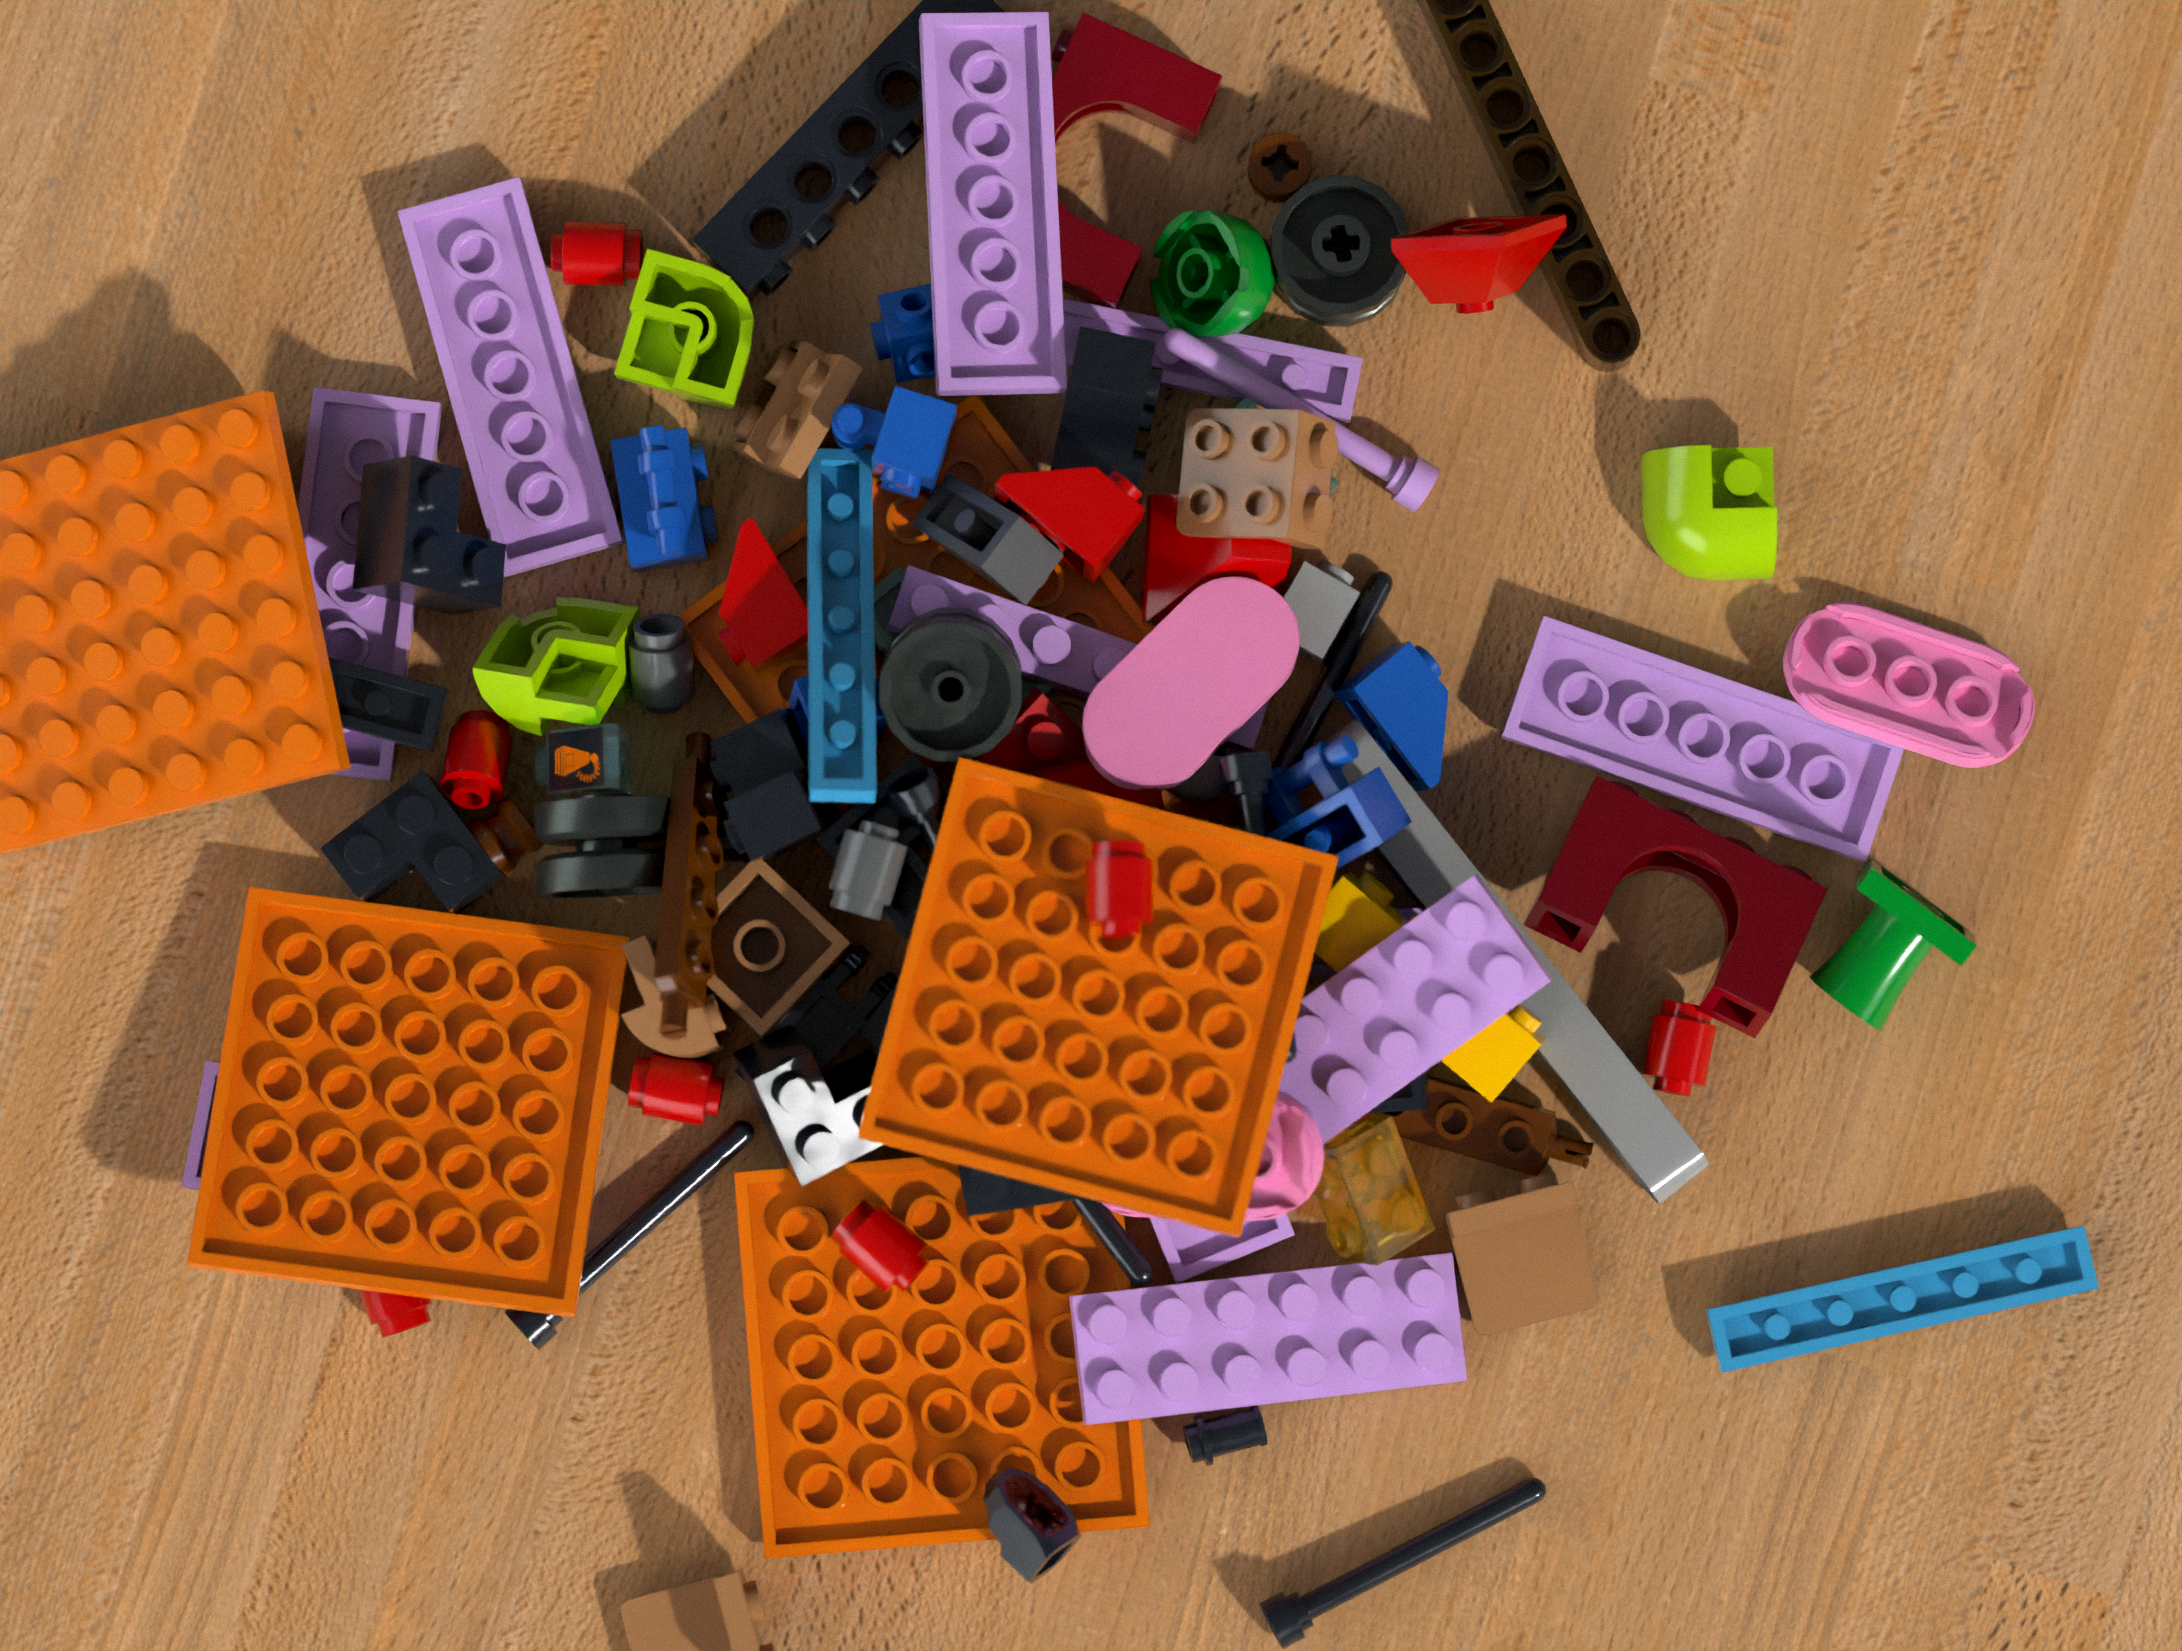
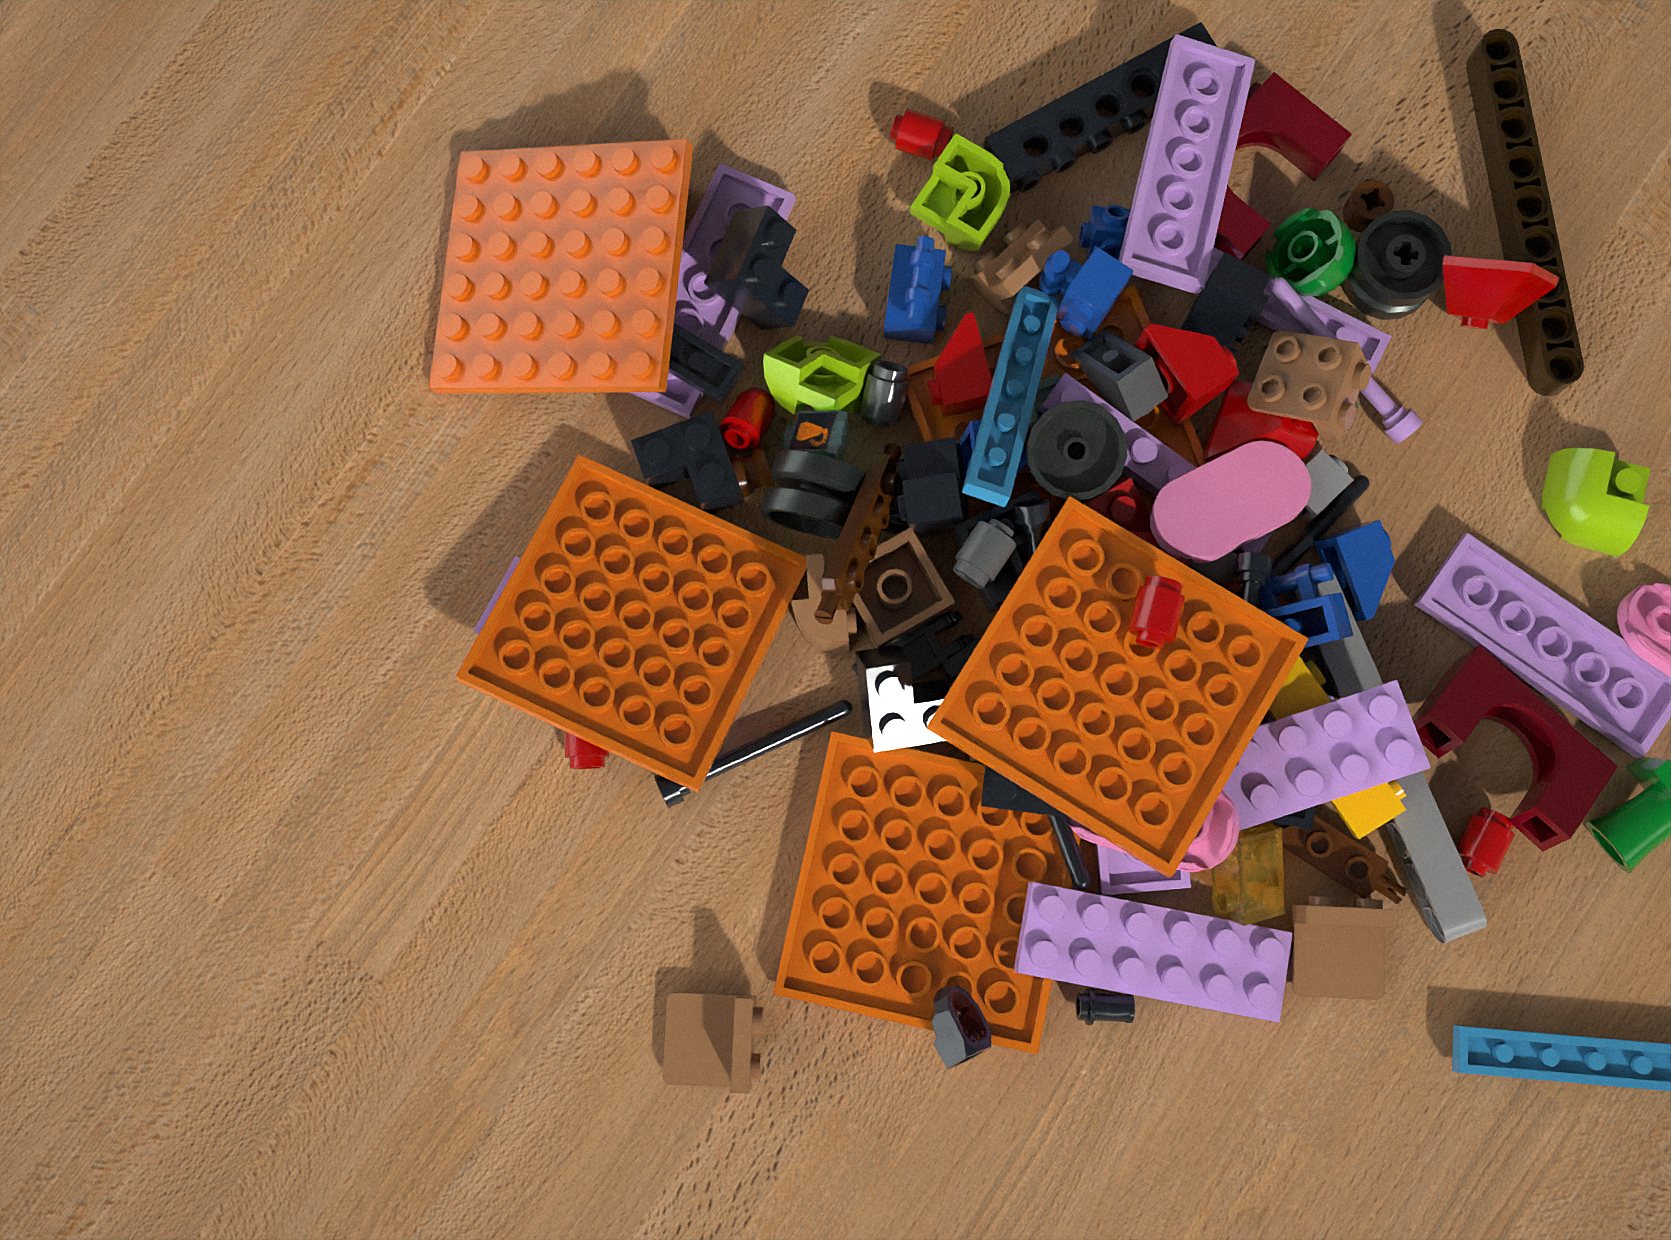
camera: 20 degrees right, 5 degrees down
(510, 376) = (844, 194): lavender plate -> none
(675, 1088) = (810, 665): red brick -> none
(881, 1246) = (914, 809): red brick -> none
(1294, 1613) = (1115, 1145): black piece -> none

